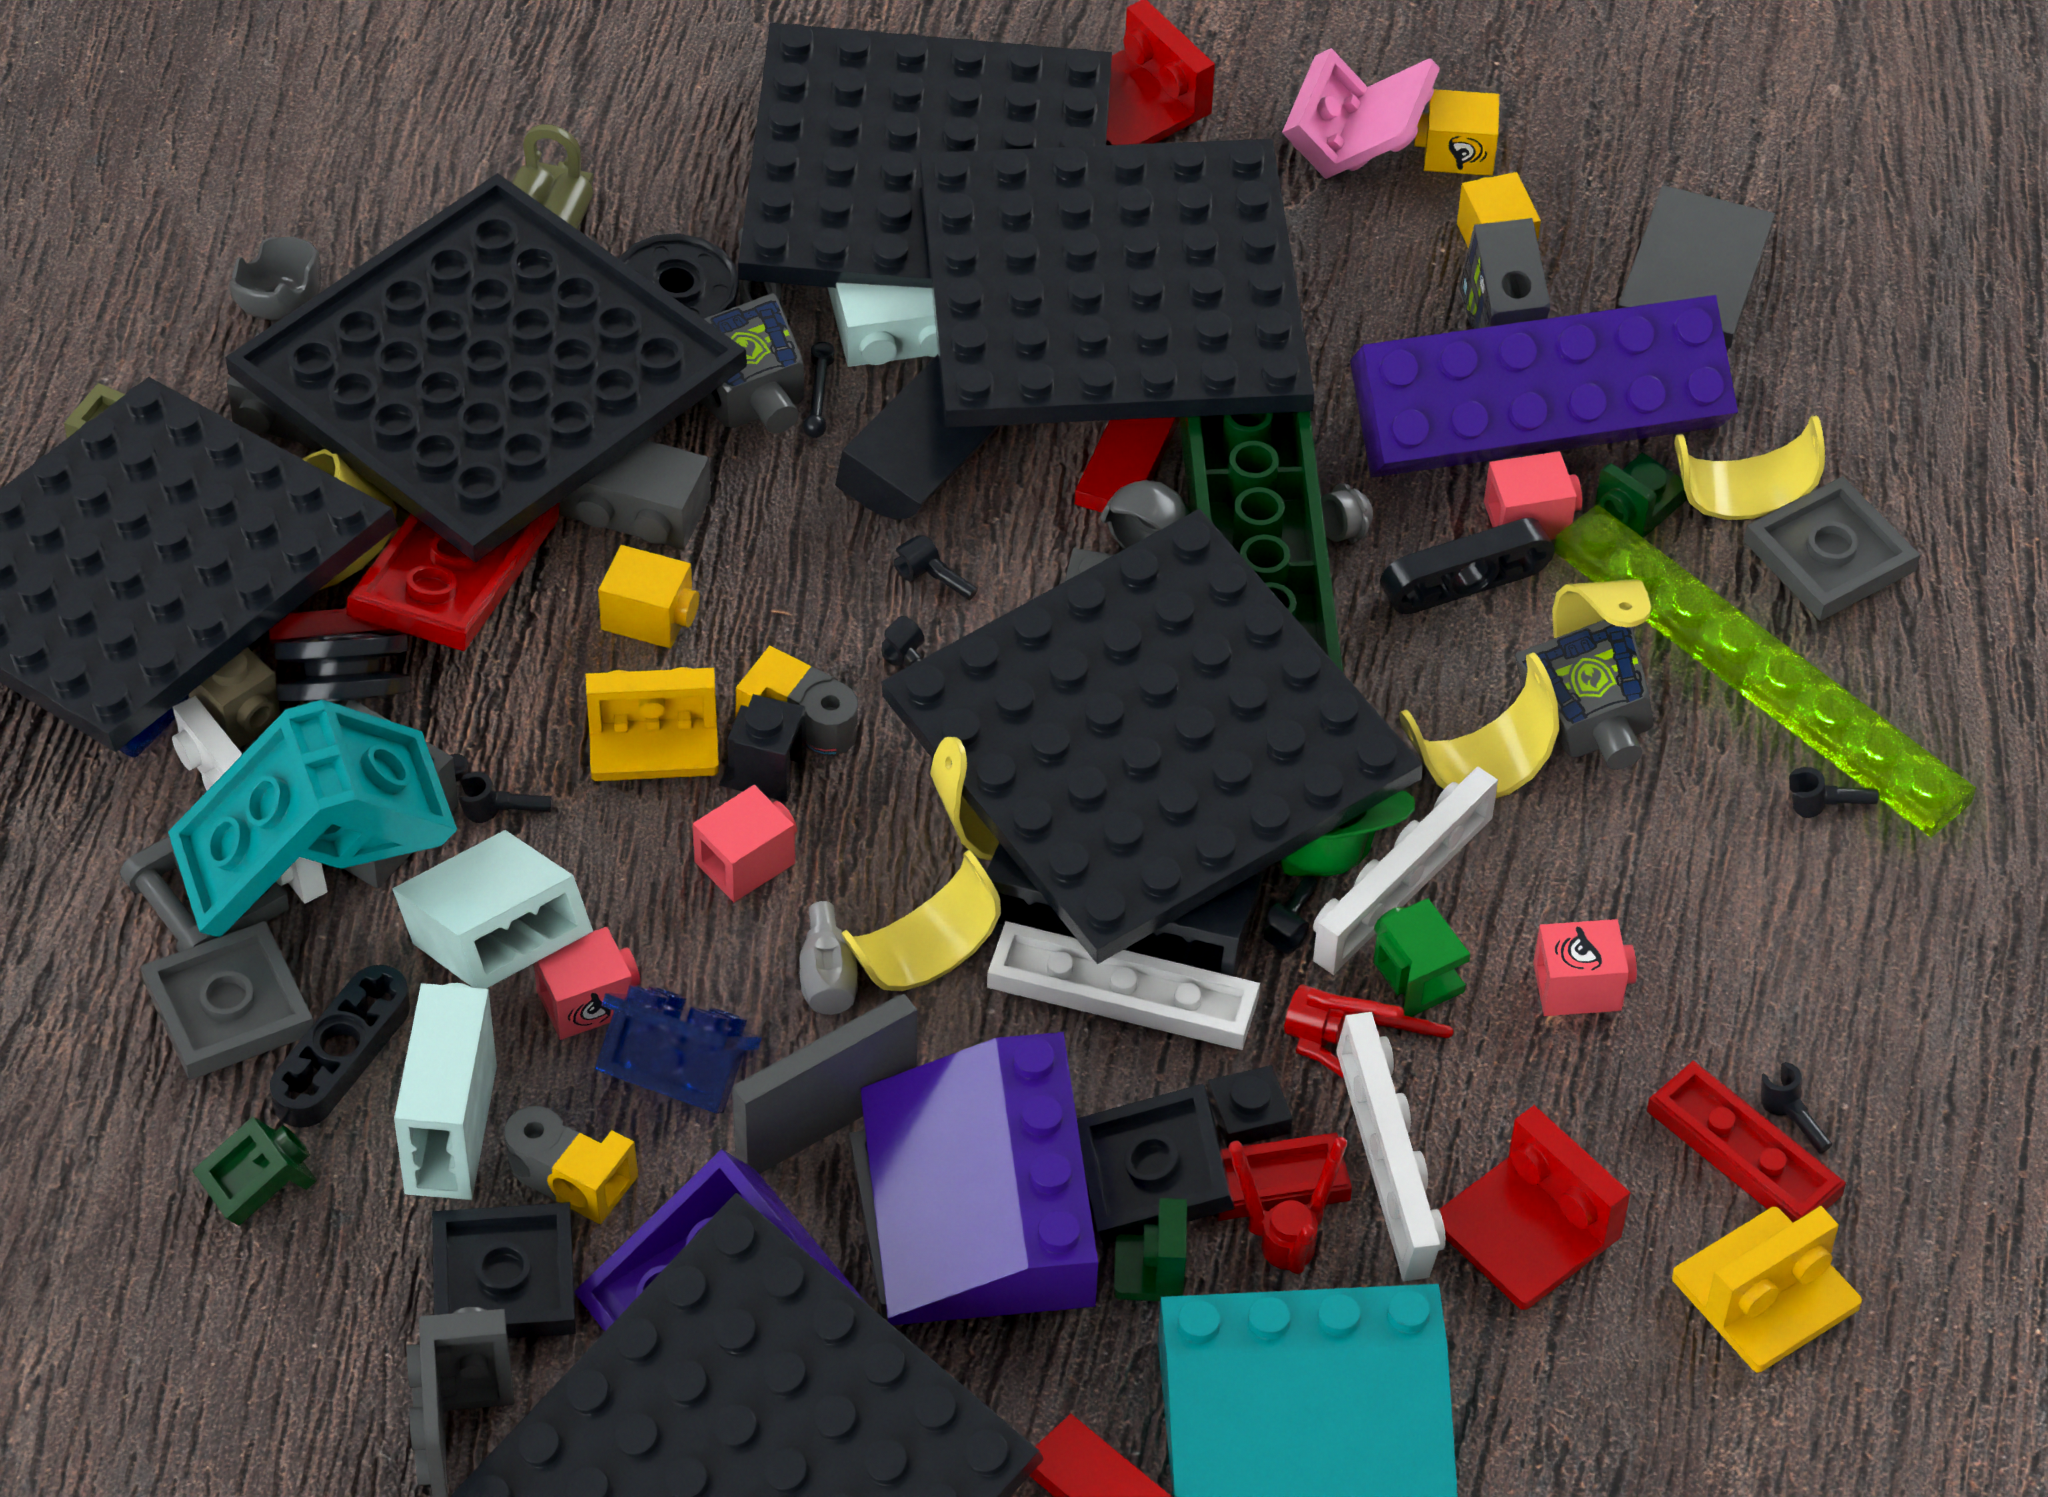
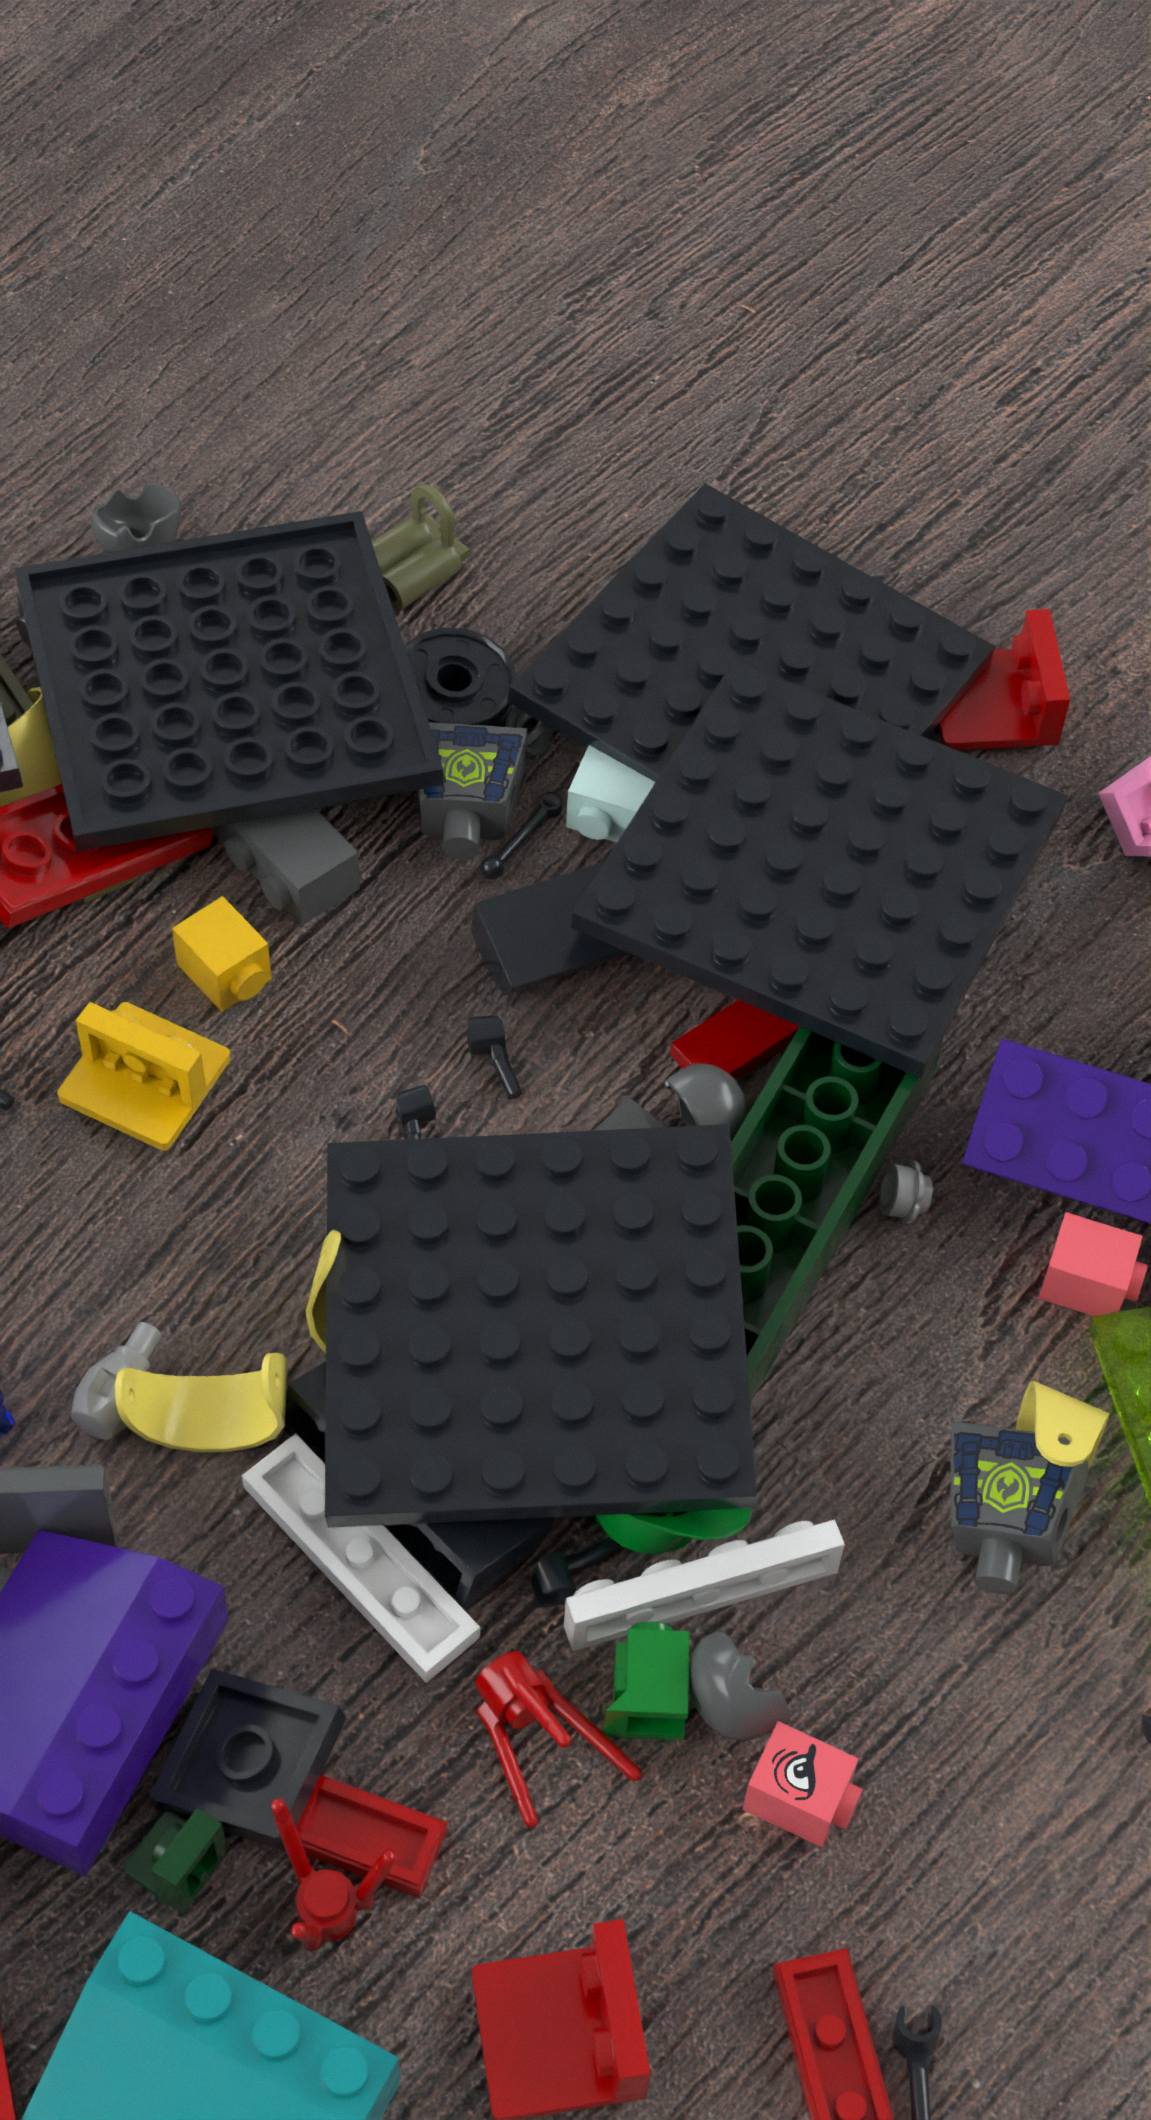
camera: 30 degrees right, 5 degrees up
(745, 842) = (131, 1230): coral brick -> none
(762, 746) = (207, 1139): black window -> none
(828, 704) = (280, 1116): dark grey leg -> none
(1249, 1106) = (390, 1745): black plate -> none
(1384, 1129) = (469, 1901): white plate -> none
(1437, 576) = (983, 1303): black beam -> none
(1488, 925) = (725, 1695): none -> dark grey hair
(1507, 748) = (871, 1510): light yellow piece -> none

